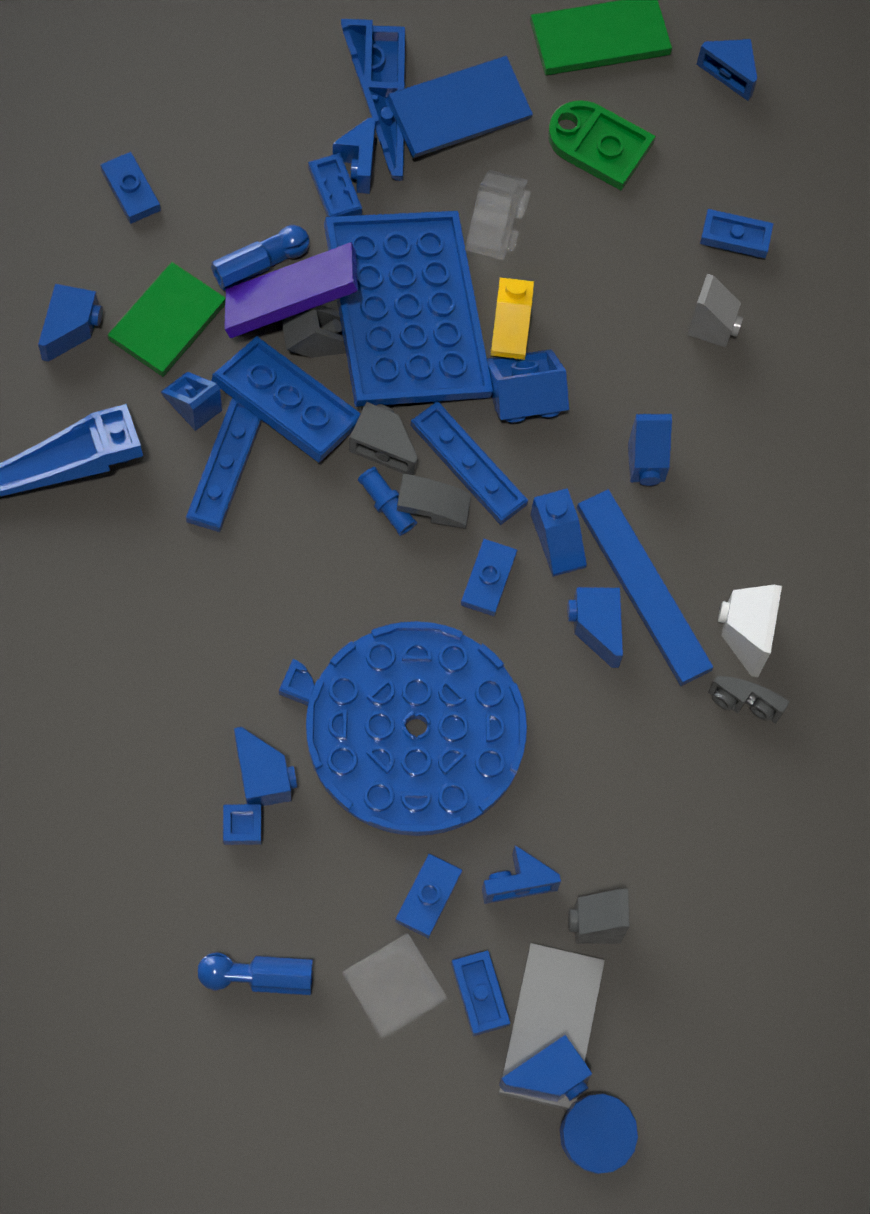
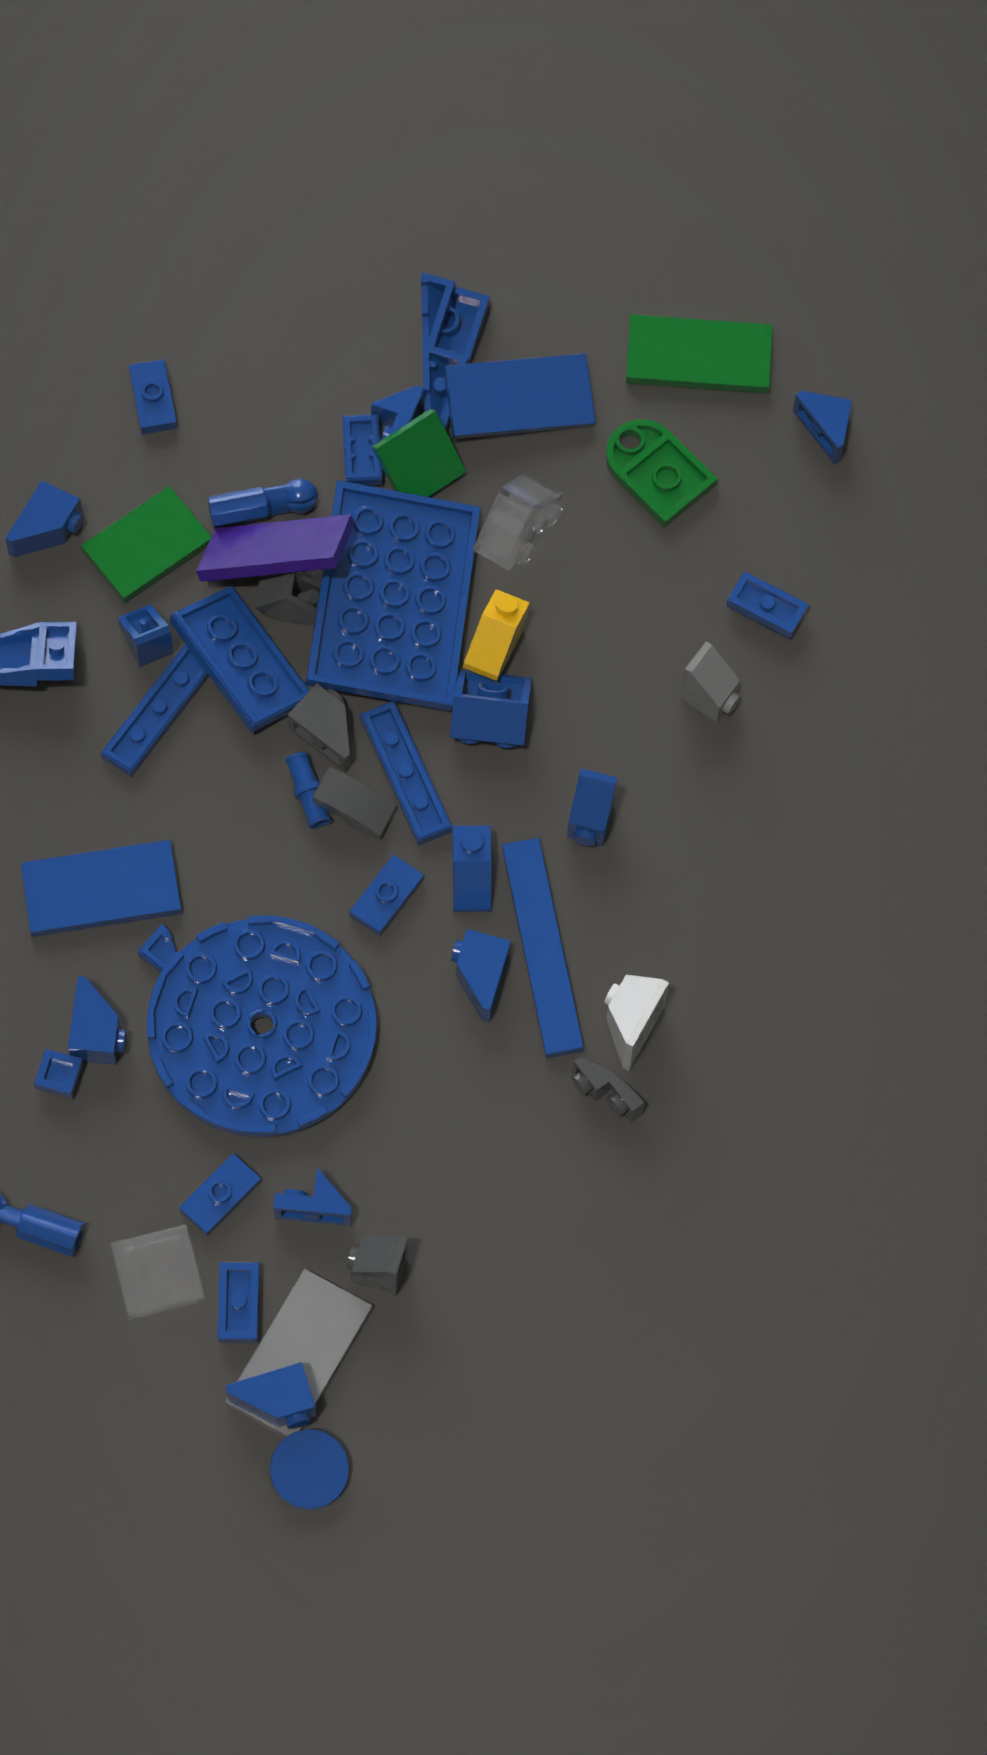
camera: 20 degrees right, 0 degrees up
(225, 641) = (100, 888): none -> blue tile
(390, 179) = (419, 456): none -> green tile

